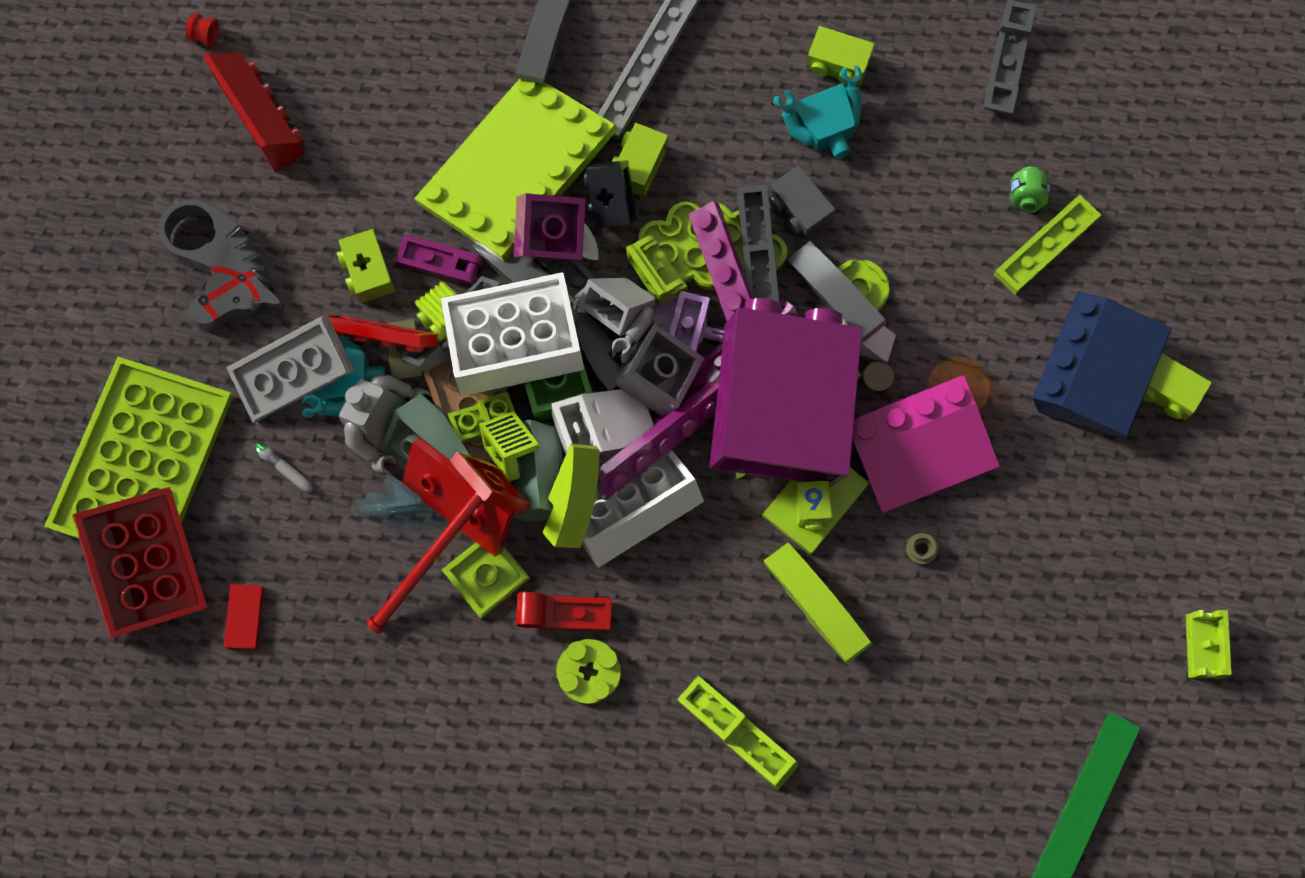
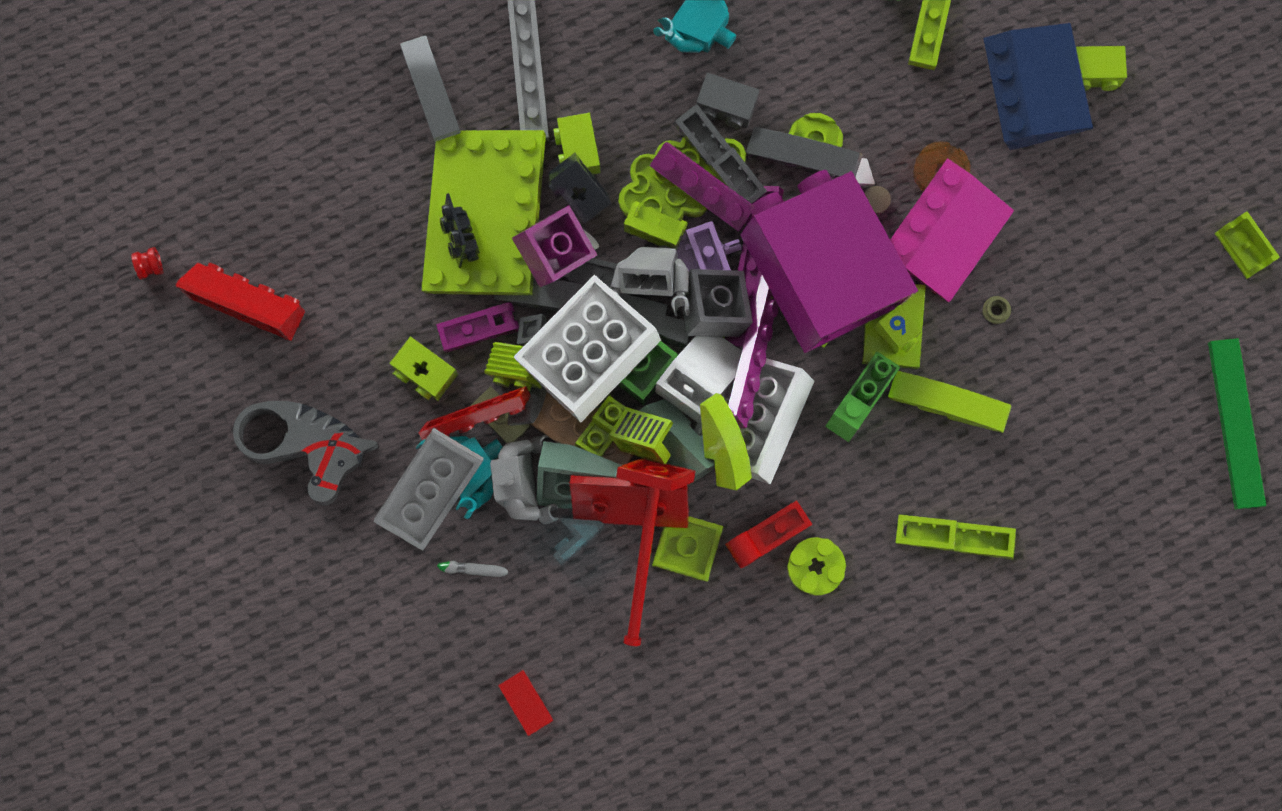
camera: 35 degrees left, 5 degrees up
(139, 562) = (418, 717): red slope -> none
(142, 438) = (355, 639): lime plate -> none
(477, 166) = (457, 226): none -> black hinge
(738, 544) = (862, 396): none -> bright green slope

